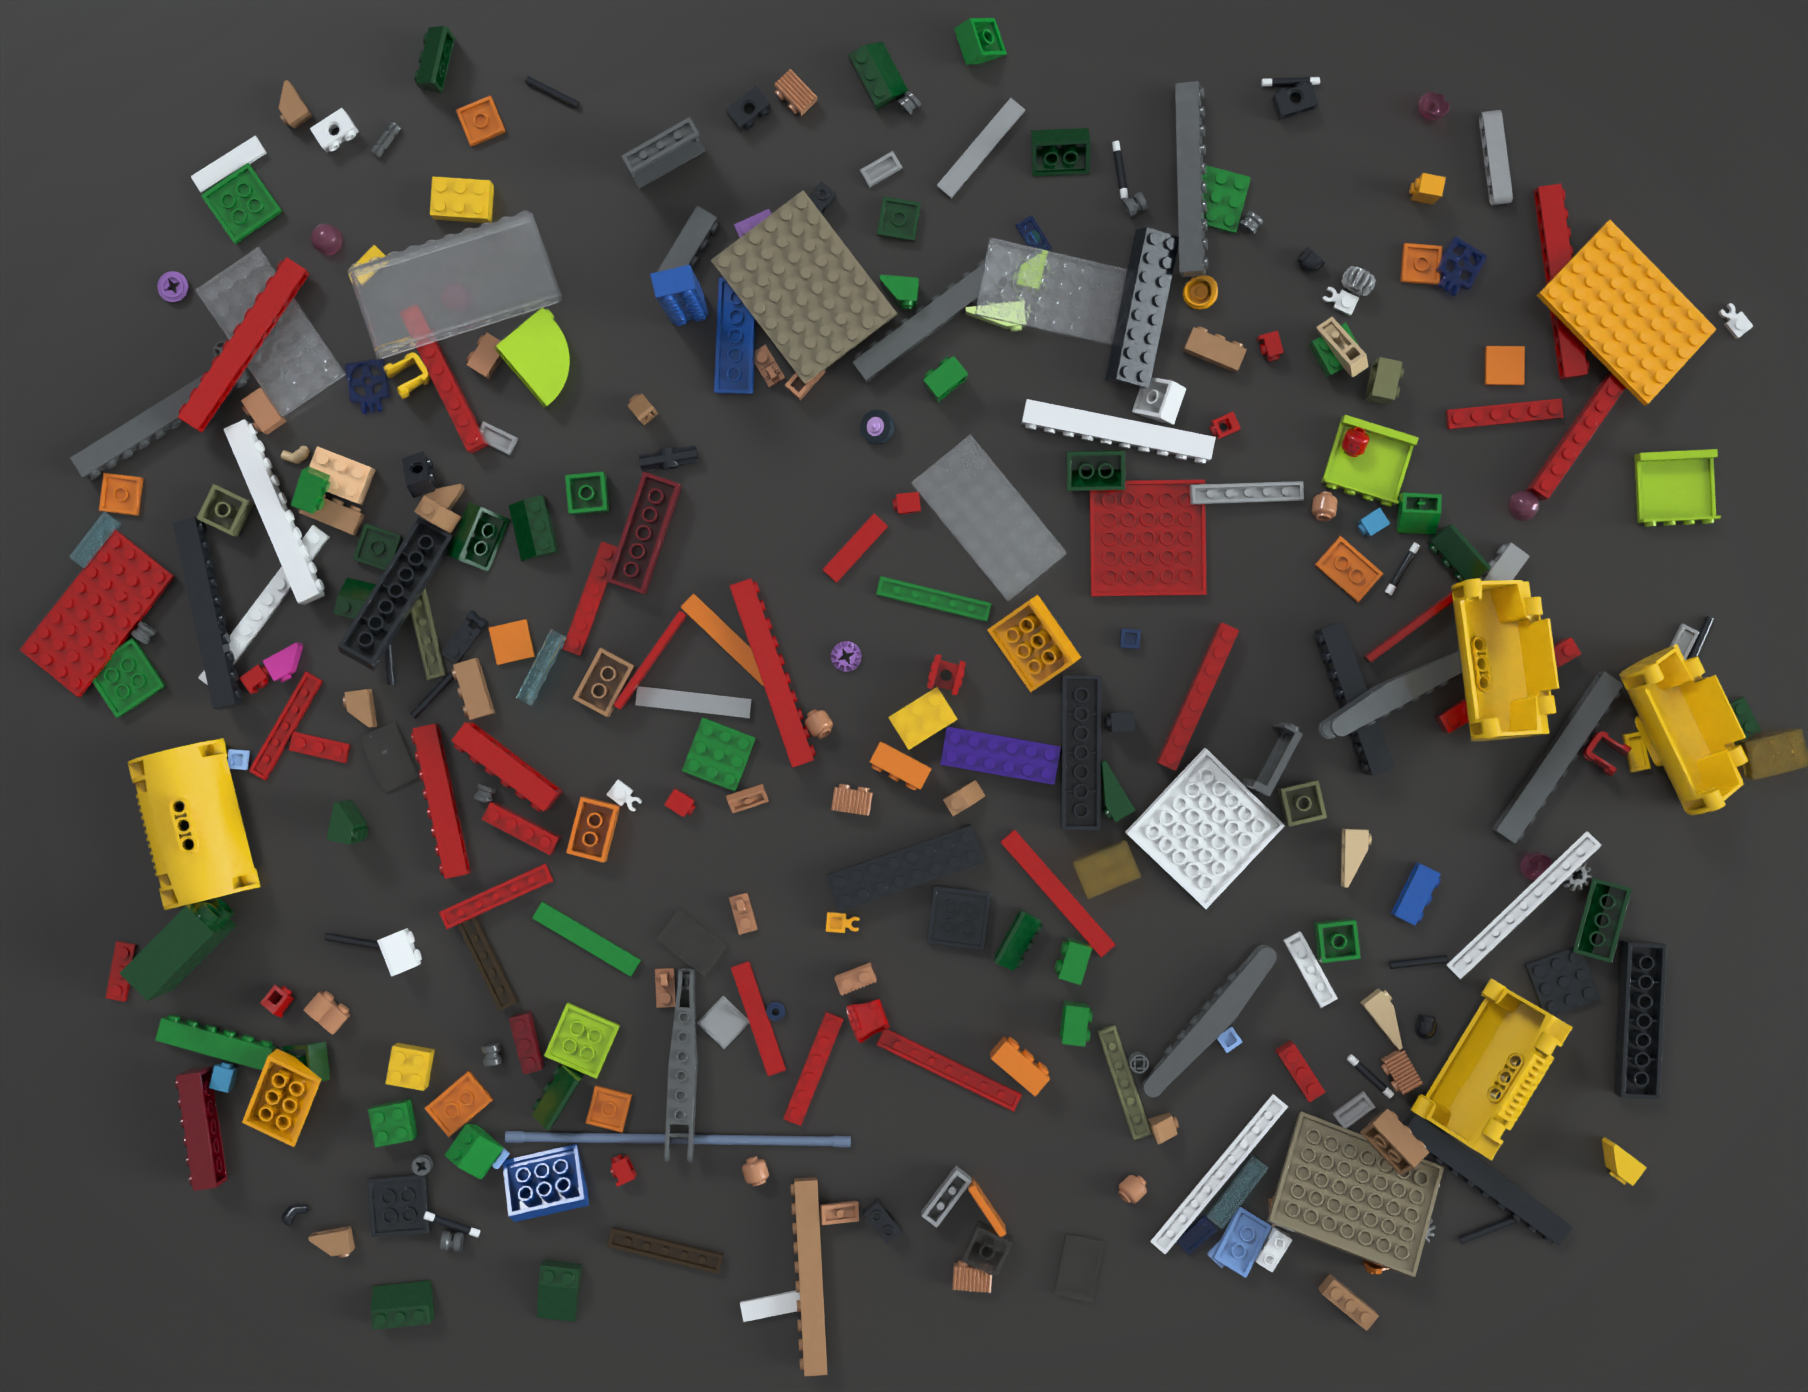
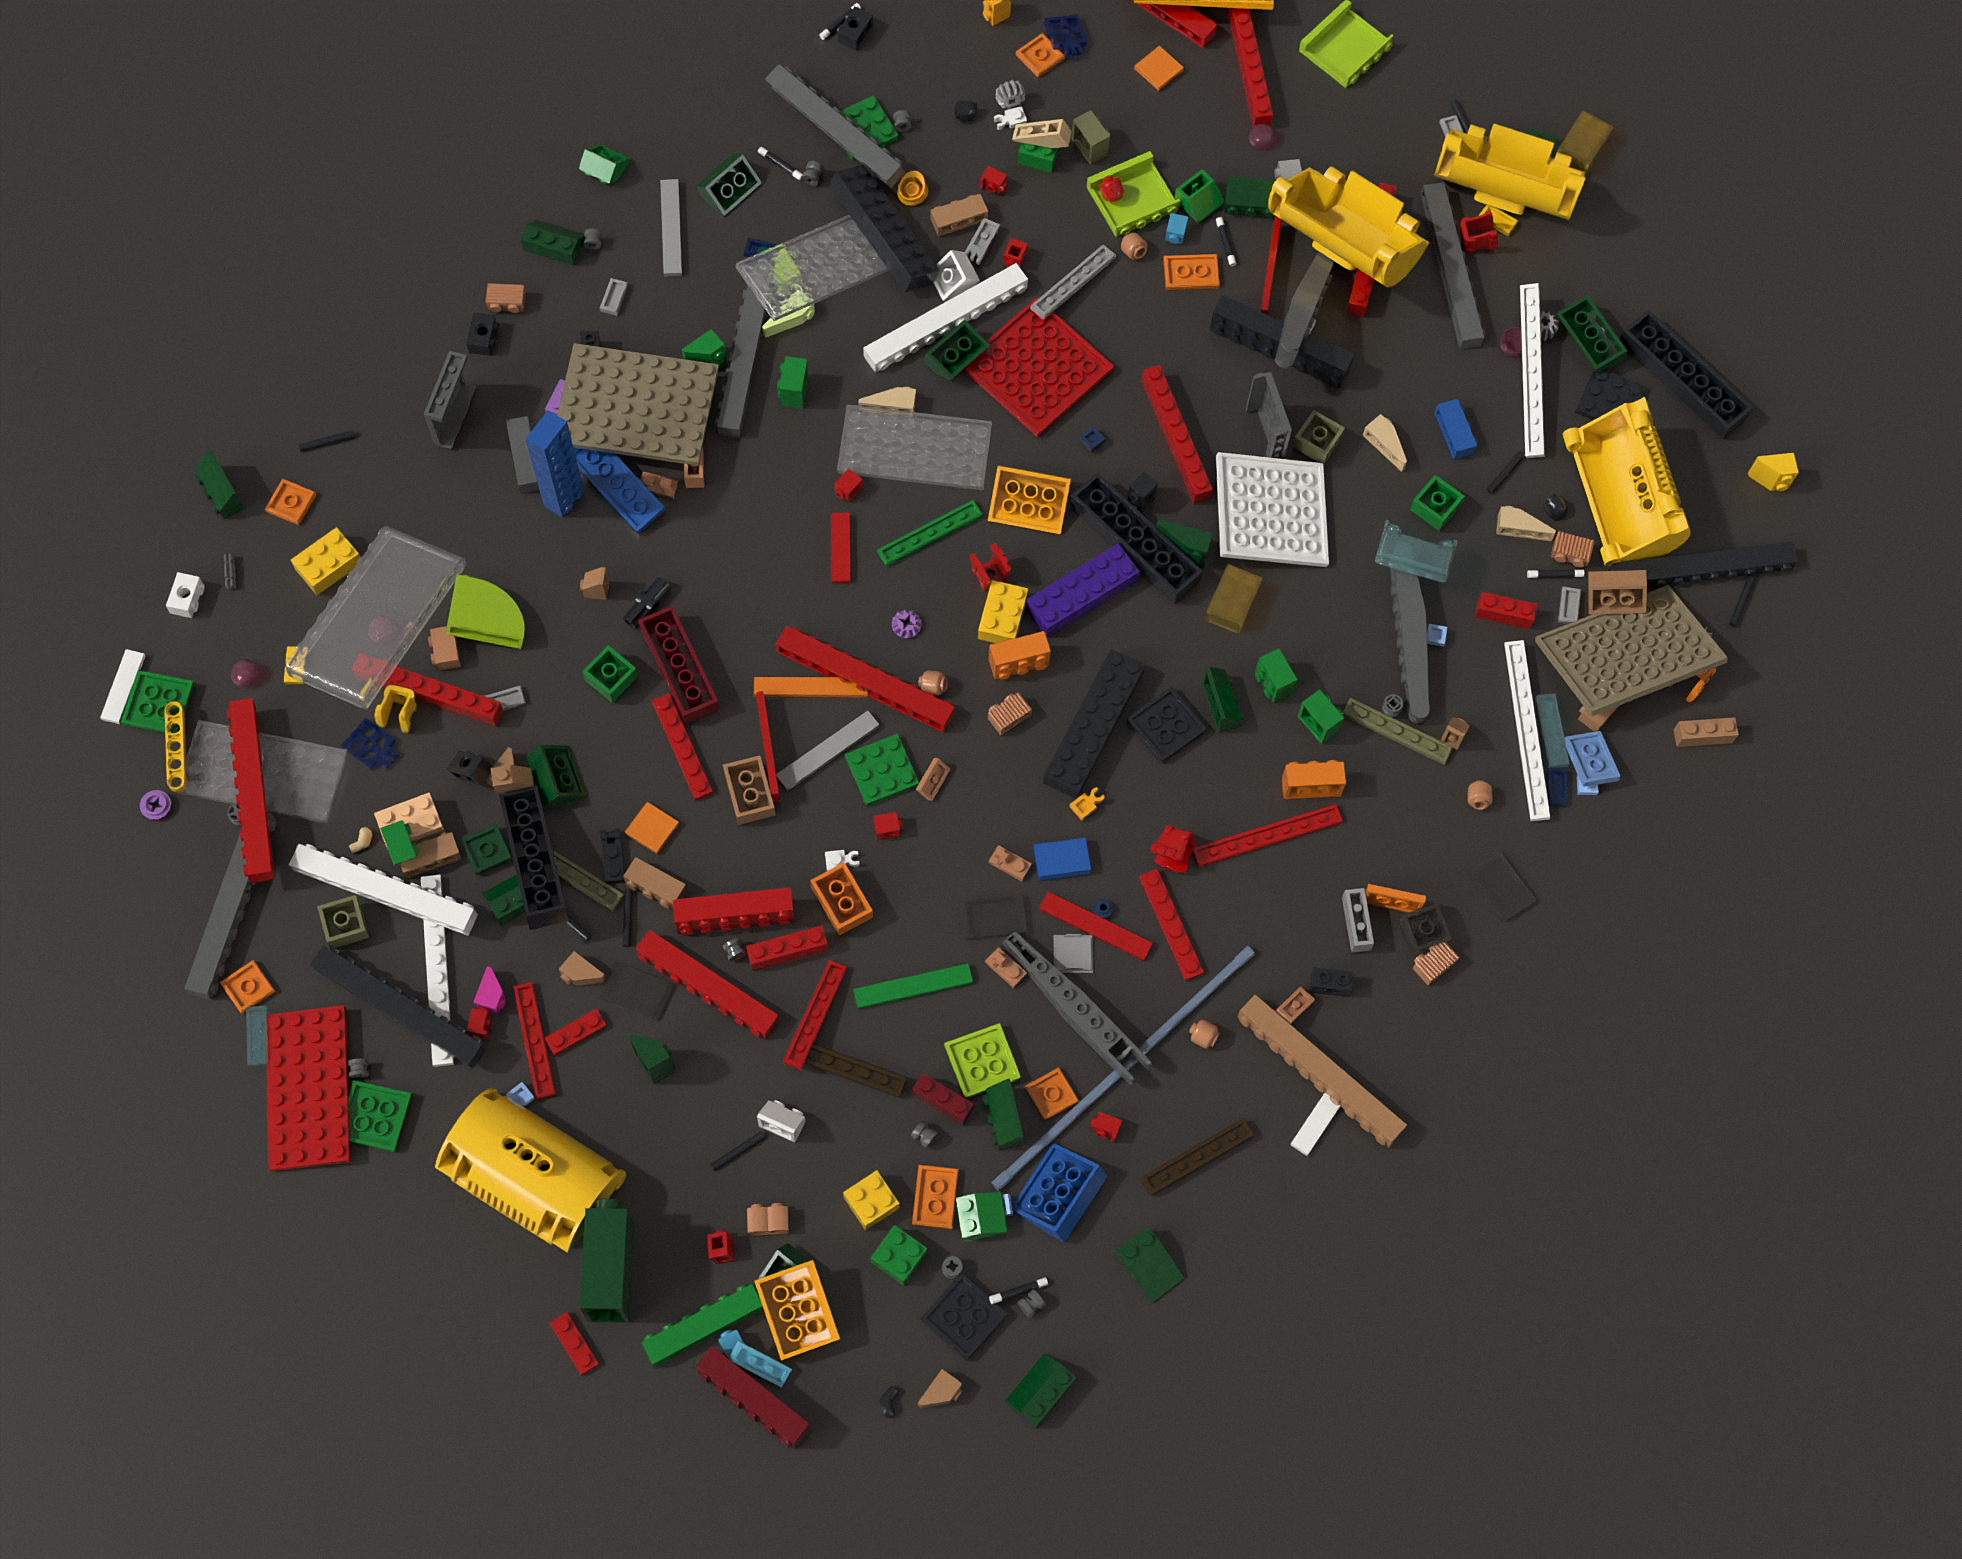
camera: 50 degrees left, 20 degrees down
(226, 1108) = (759, 1363): none -> medium azure plate
(231, 250) = (172, 738): none -> yellow beam
(262, 411) = (307, 830): nougat brick -> none
(292, 107) = (140, 605): medium nougat slope -> none
(533, 528) = (592, 734): dark green slope -> none
(541, 667) = (691, 823): clear light blue plate -> none
(783, 946) = (1062, 858): none -> blue piece
(855, 978) = (1137, 831): nougat brick -> none
(877, 426) = (776, 455): black wheel -> none
(898, 219) = (658, 315): dark green plate -> none
(964, 797) = (1085, 643): medium nougat slope -> none
(1010, 465) = (893, 399): none -> tan slope
(1057, 893) = (1212, 646): red tile -> none
(1211, 389) = (982, 240): none -> light grey hinge
(1267, 972) = (1415, 554): none -> clear light blue windscreen
(1273, 1248) = (1617, 743): white brick -> none
(1310, 969) = (1465, 548): white tile -> none
(1504, 414) = (1189, 96): red plate -> none

